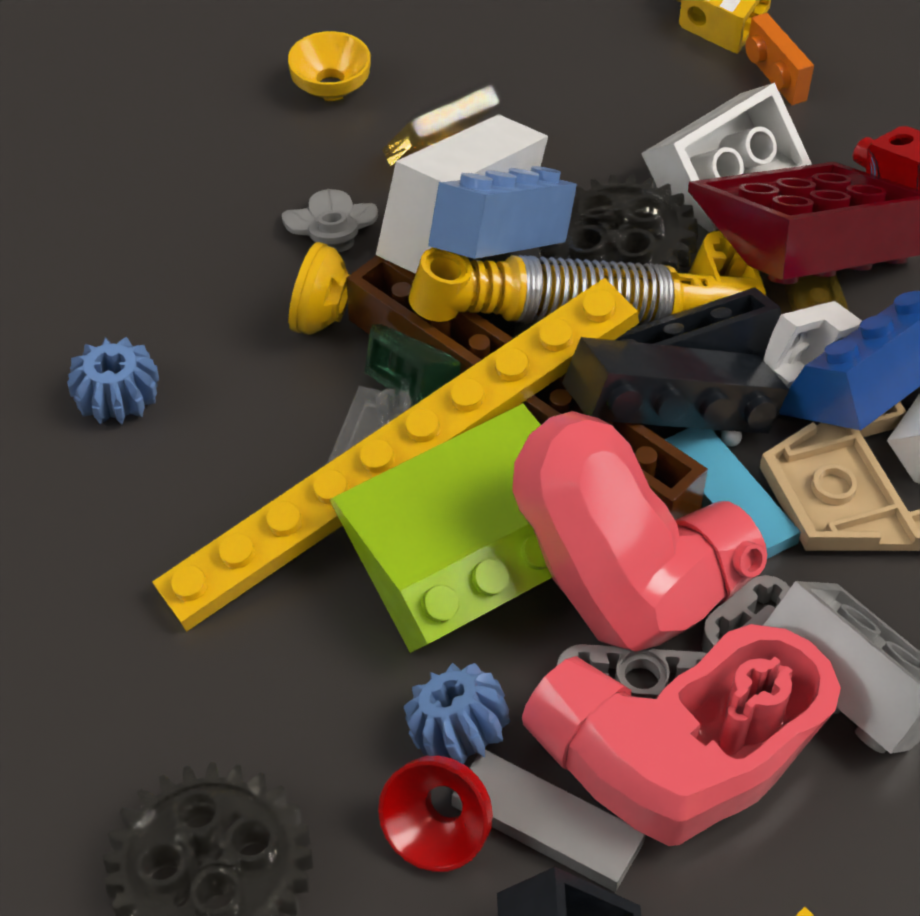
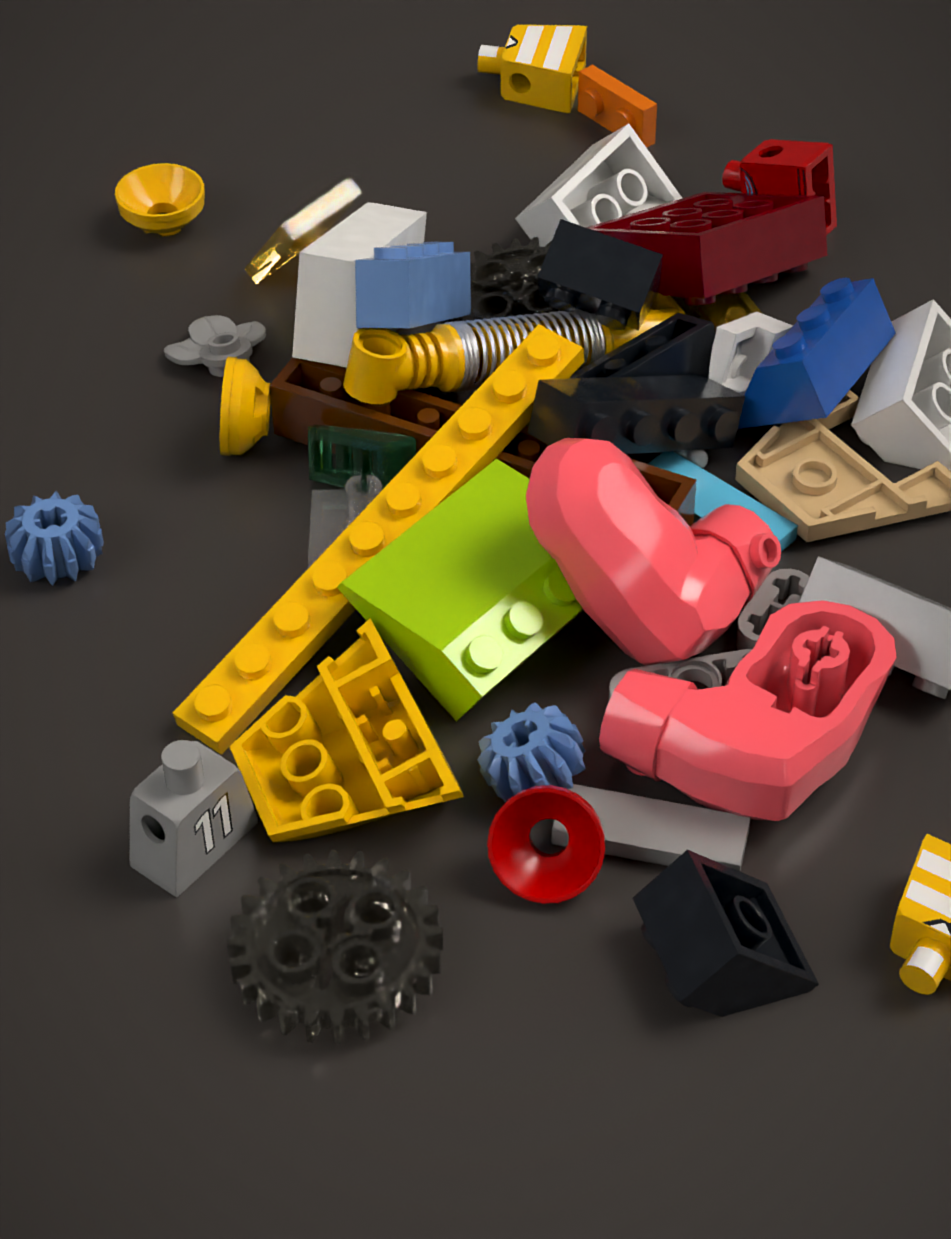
camera: 15 degrees left, 5 degrees down
(120, 694) = (187, 815): none -> light grey torso
(292, 662) = (343, 749): none -> yellow wedge
(682, 241) = (600, 276): none -> black slope

